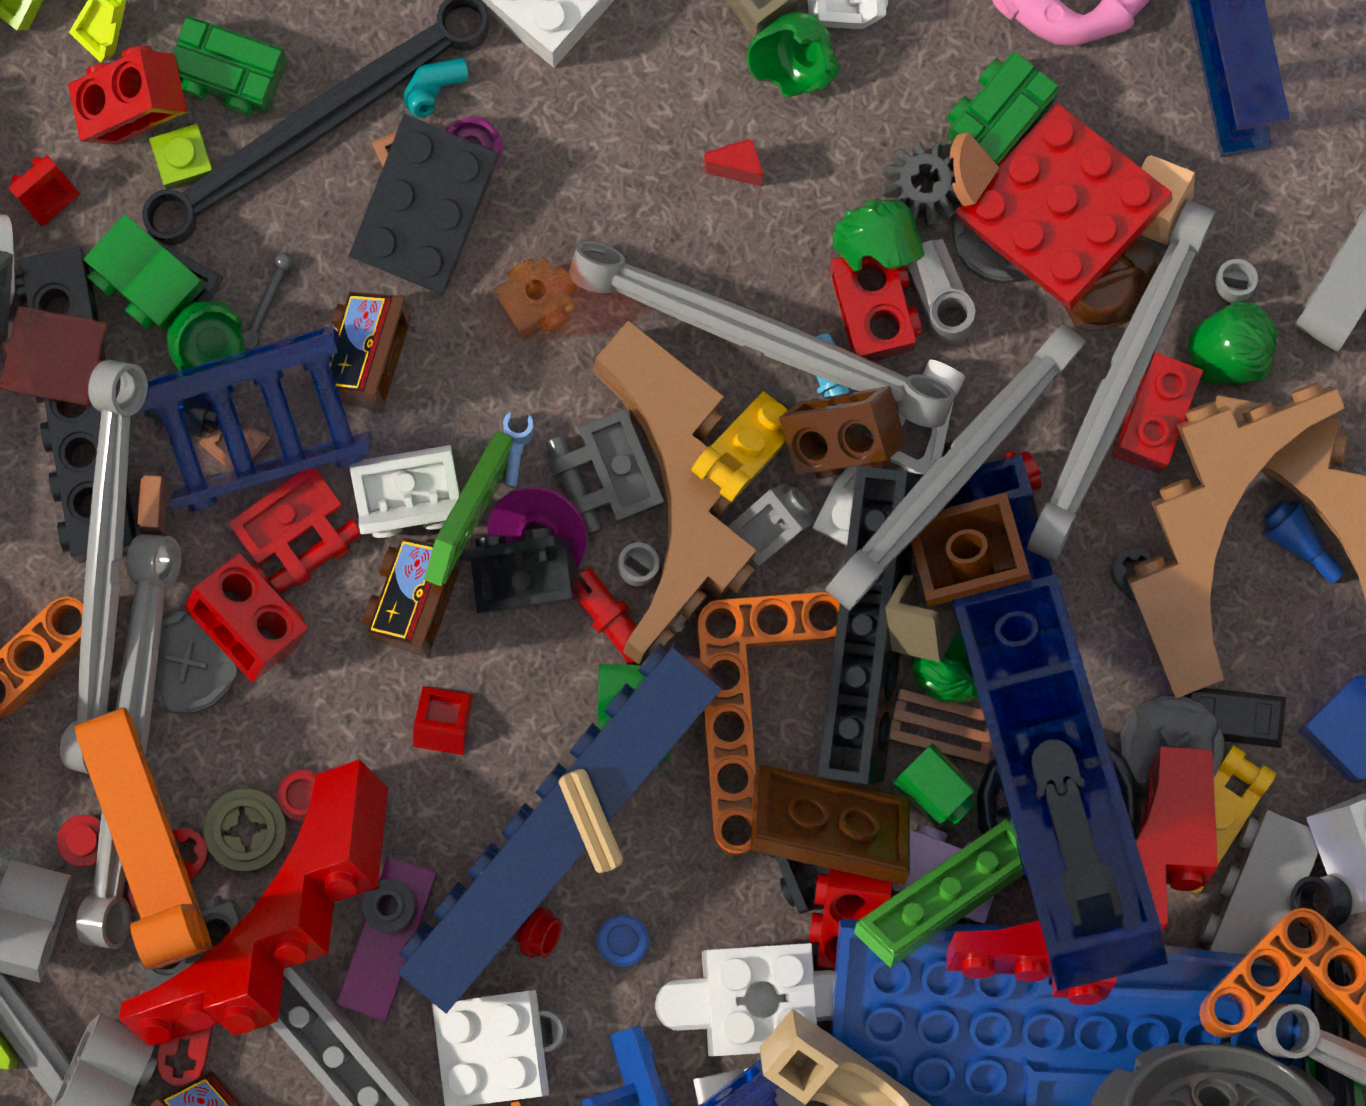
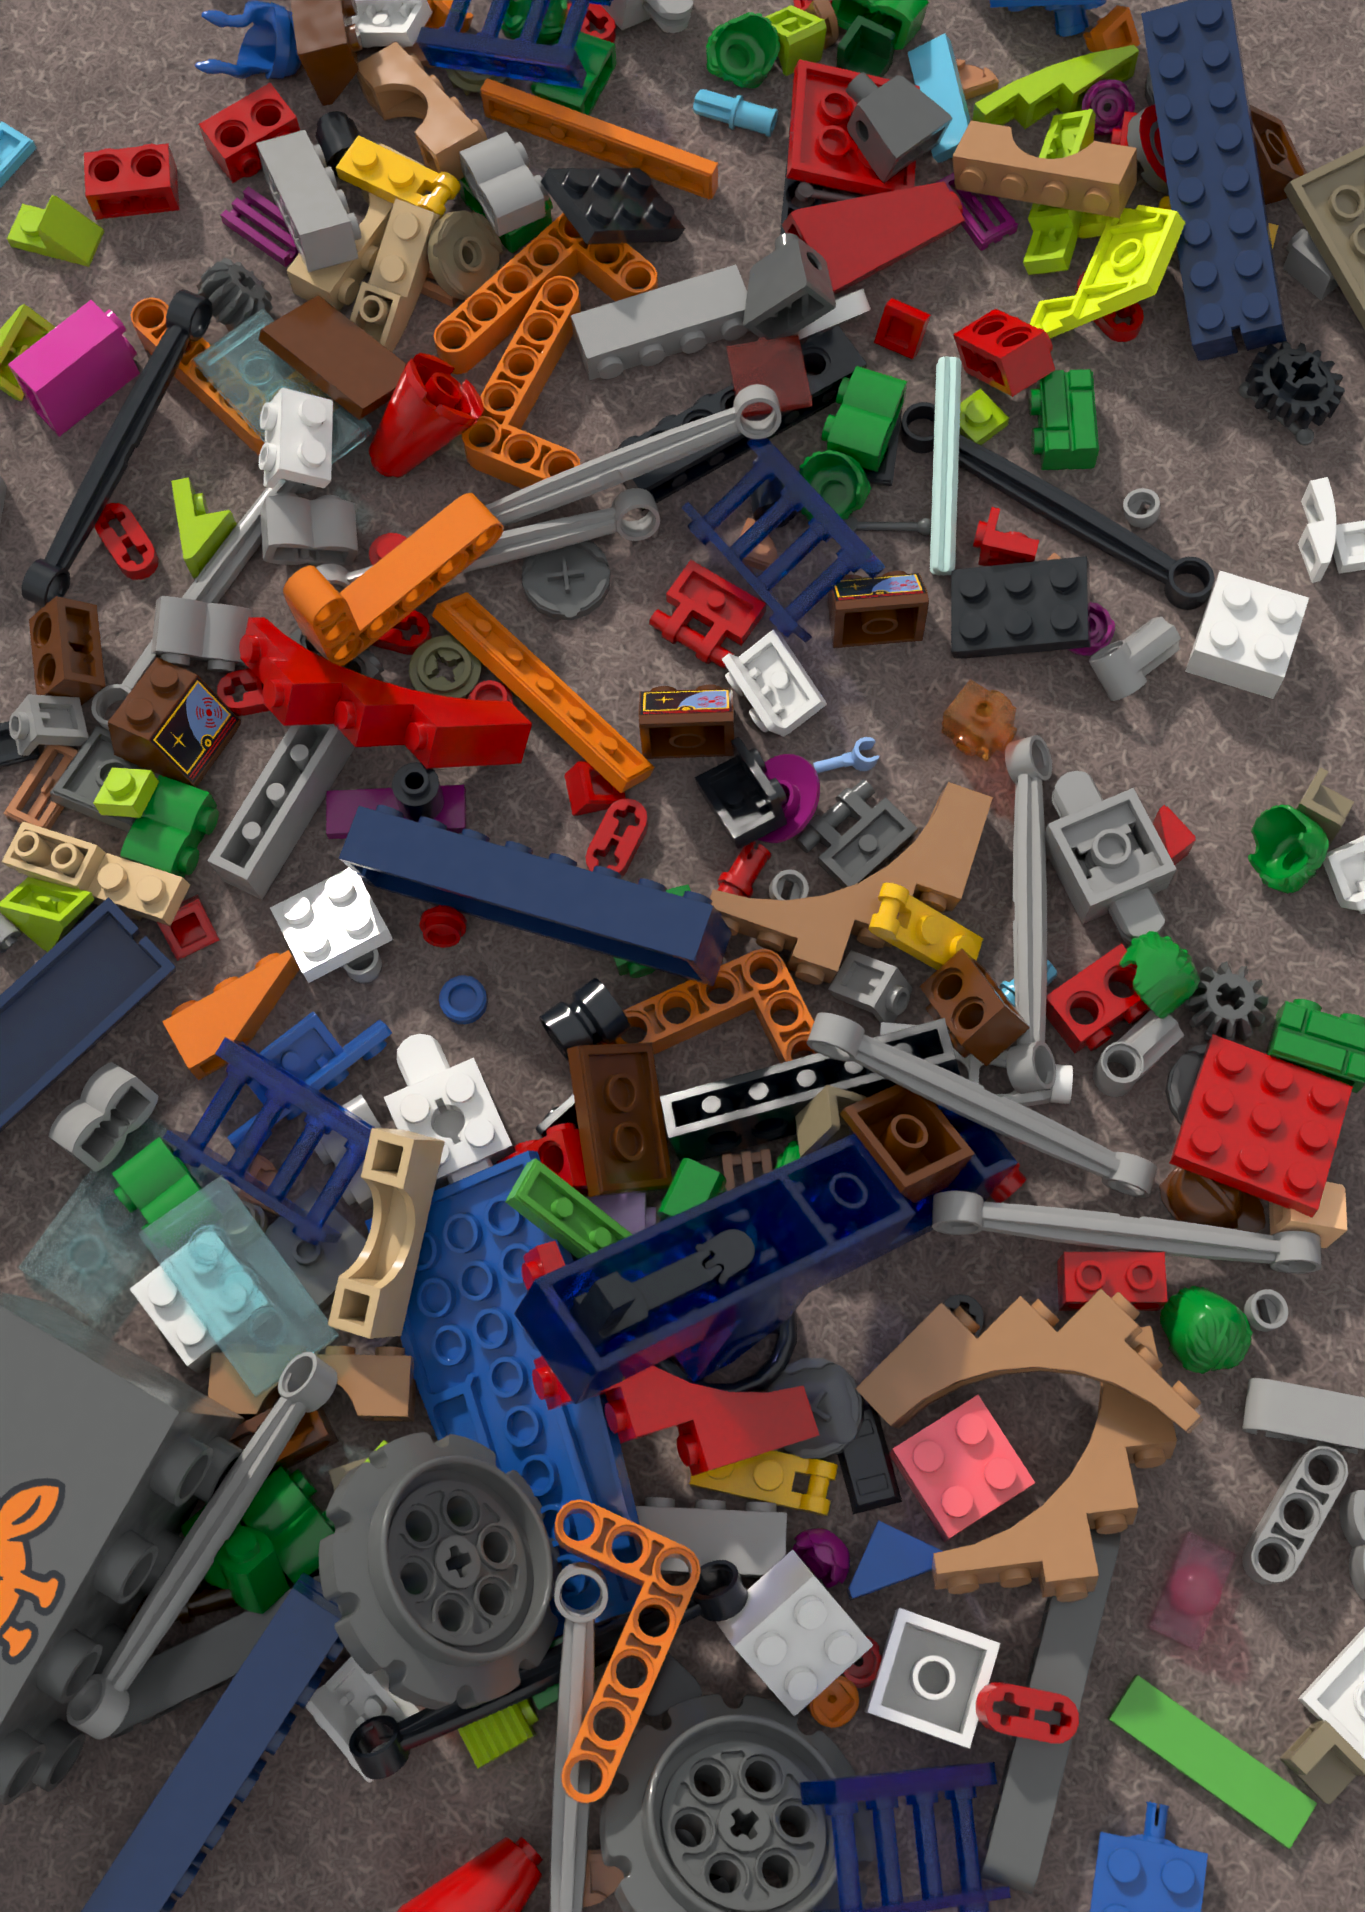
camera: 75 degrees right, 10 degrees down
(152, 504) = (675, 496): nougat tile -> none
(230, 212) = (945, 466): none -> light aqua axle
(236, 624) = (611, 595): red brick -> none
(312, 735) = (543, 692): none -> orange tile
(351, 39) = (1134, 504): none -> light grey hinge
(352, 187) = (1002, 547): none -> red bracket
(428, 81) = (1124, 576): teal arm -> none
(469, 509) = (772, 719): bright green tile -> none
(503, 728) = (608, 831): none -> red beam
(529, 126) = (1126, 662): none -> light grey piece
(590, 821) = (539, 899): tan axle -> none
(717, 822) = (587, 1020): none -> black wheel
(733, 232) = (1108, 855): none -> light grey brick
(971, 168) = (1256, 1029): nougat tile -> none
(1281, 628) = (961, 1468): none -> coral brick
(1294, 531) = (1056, 1452): blue cone -> none
(1313, 791) = (823, 1555): none -> magenta plate

